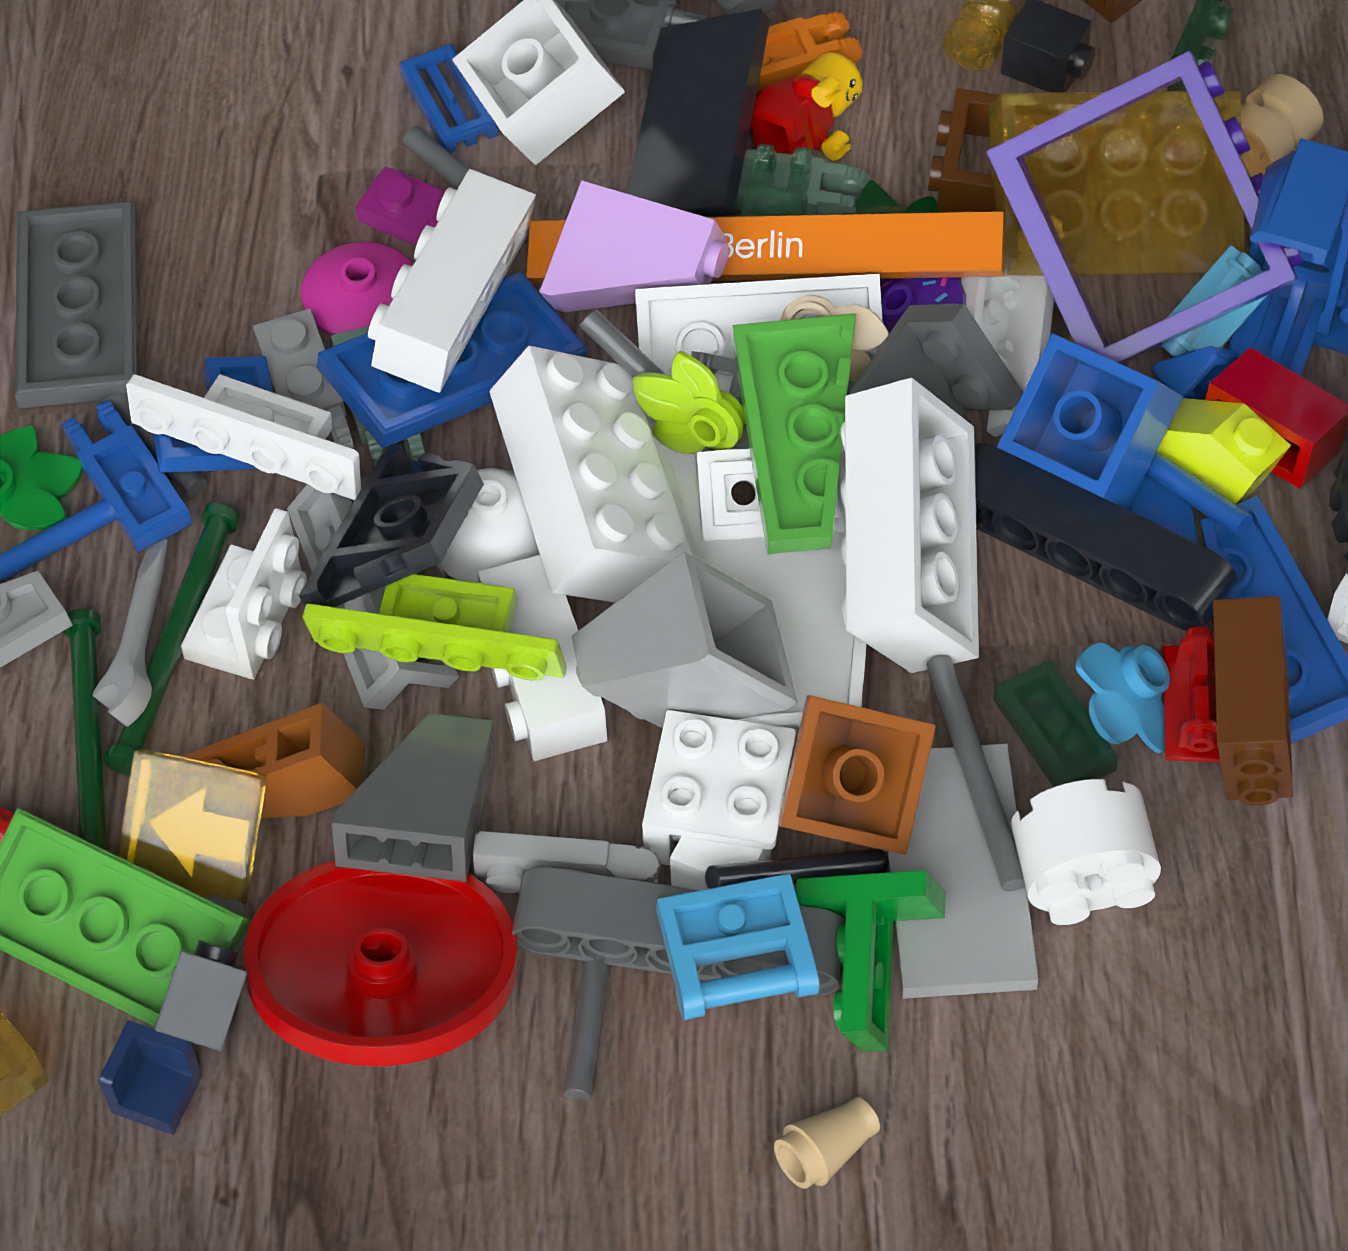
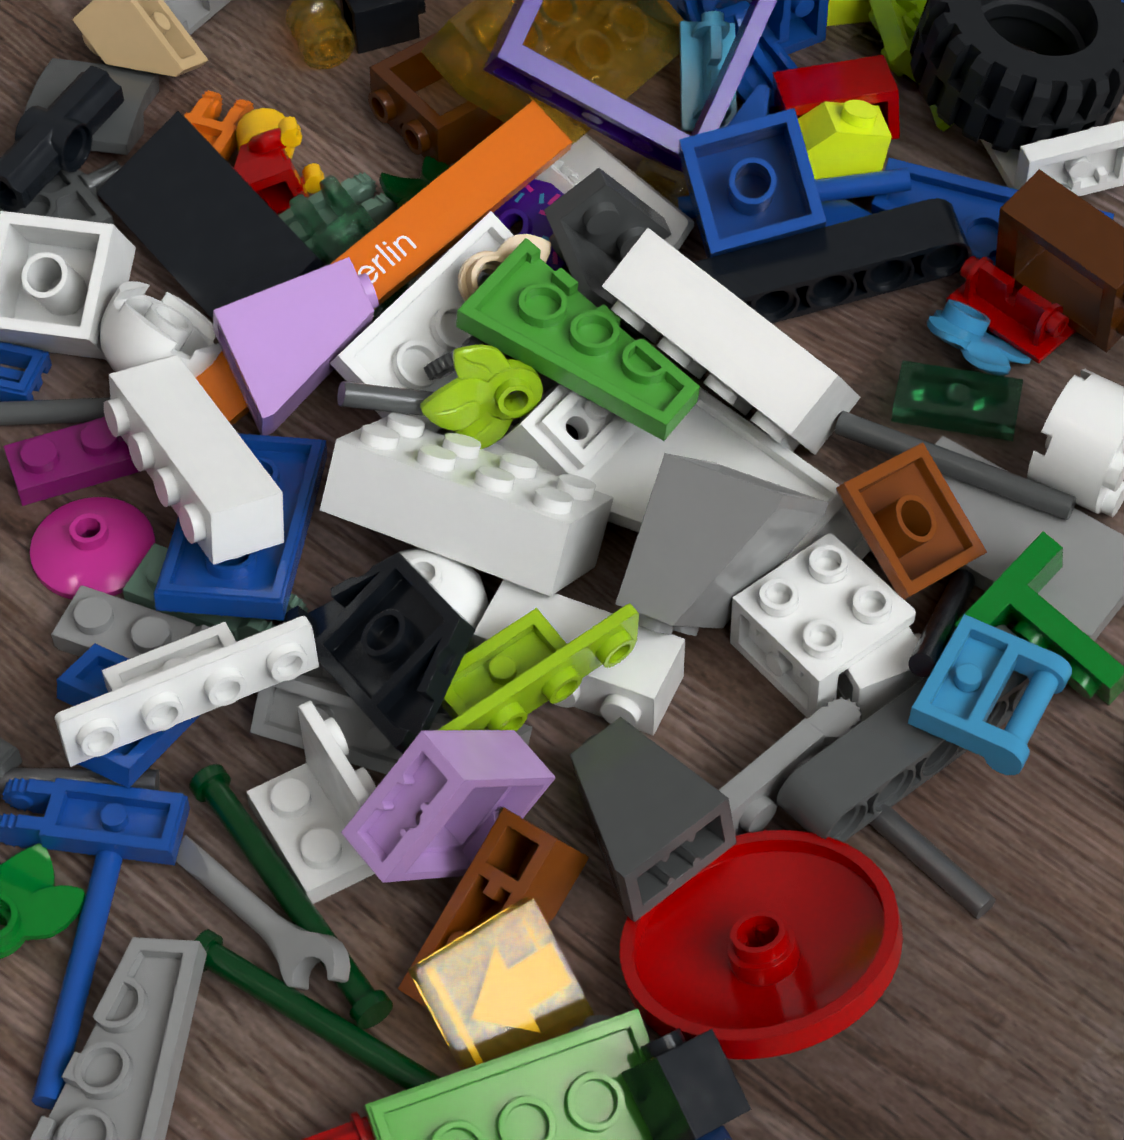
camera: 50 degrees left, 5 degrees down
(287, 657) = (444, 801): none -> lavender window
(553, 158) = (145, 330): none -> white cylinder

